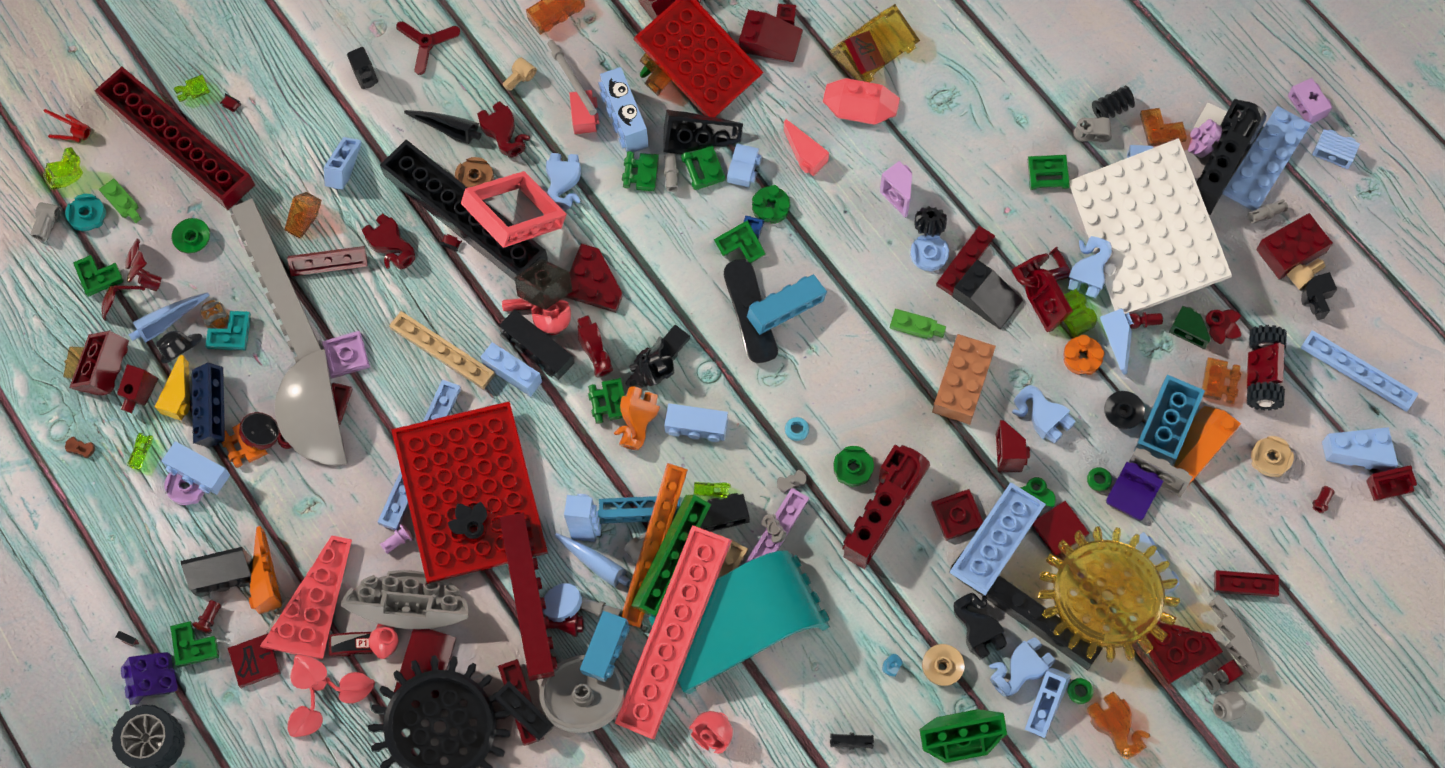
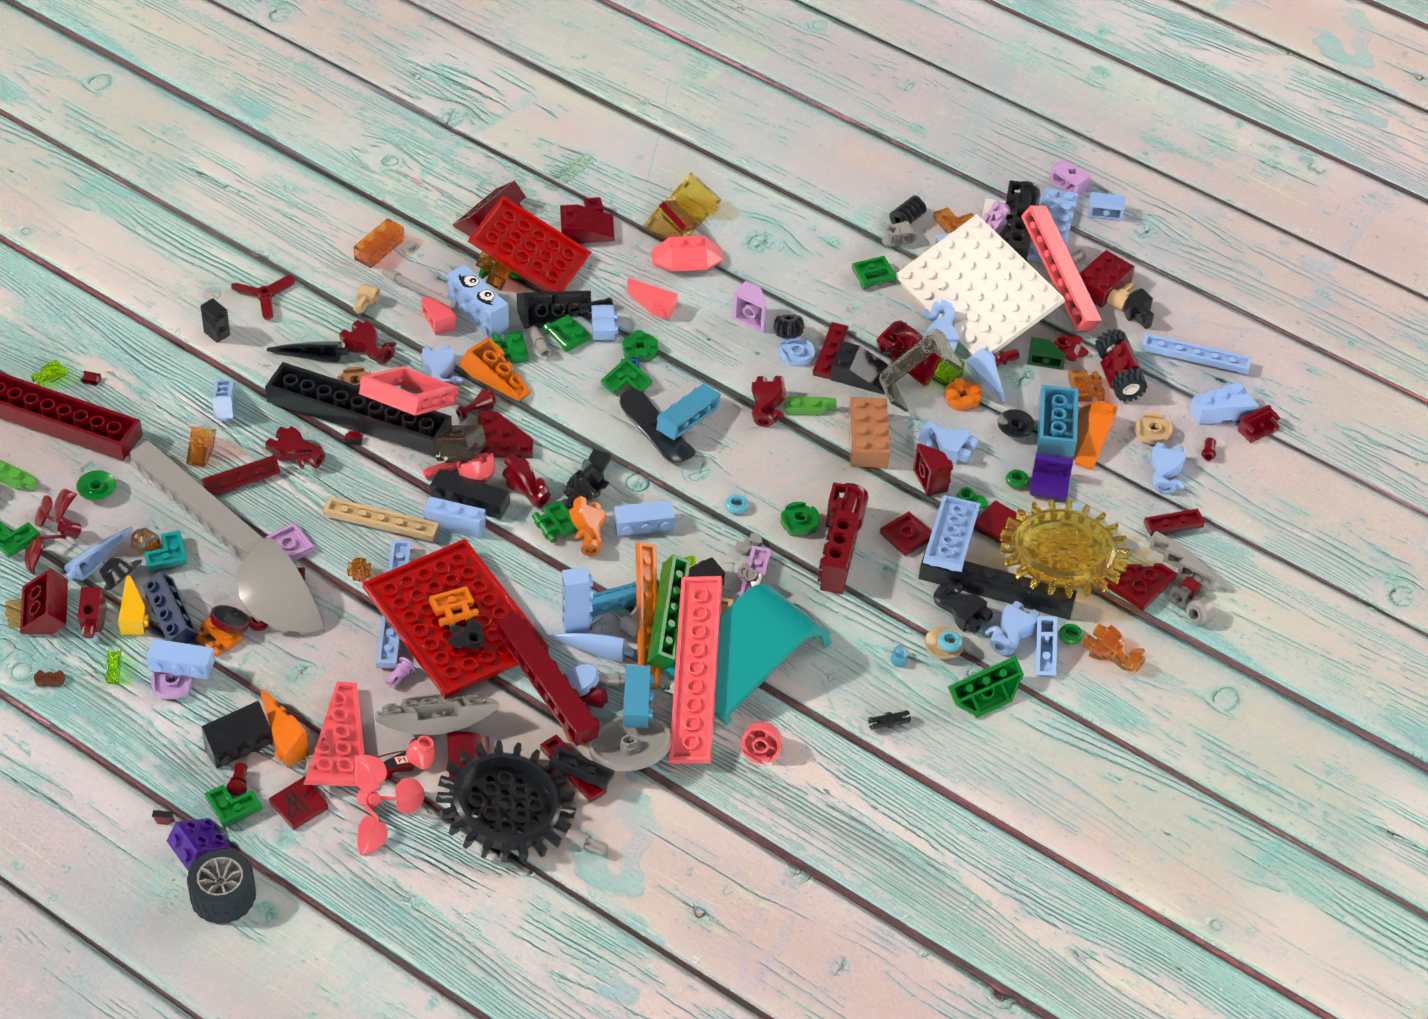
camera: 25 degrees left, 20 degrees down
(403, 401) = (359, 569): none -> clear orange gear
(467, 477) = (451, 601): none -> orange plate
(590, 232) = (484, 400): none -> dark red piece
(611, 194) = (488, 365): none -> orange wedge
(744, 140) = (586, 307): none -> black axle
(875, 306) = (767, 397): none -> dark red hips
(947, 659) = (949, 635): none -> medium azure piece
(1058, 302) = (910, 359): none -> clear smoke windscreen
(1174, 479) = (1082, 454): light grey plate -> none
(1247, 227) = (1061, 268): none -> coral brick
(1267, 508) = (1167, 464): none -> light blue hips

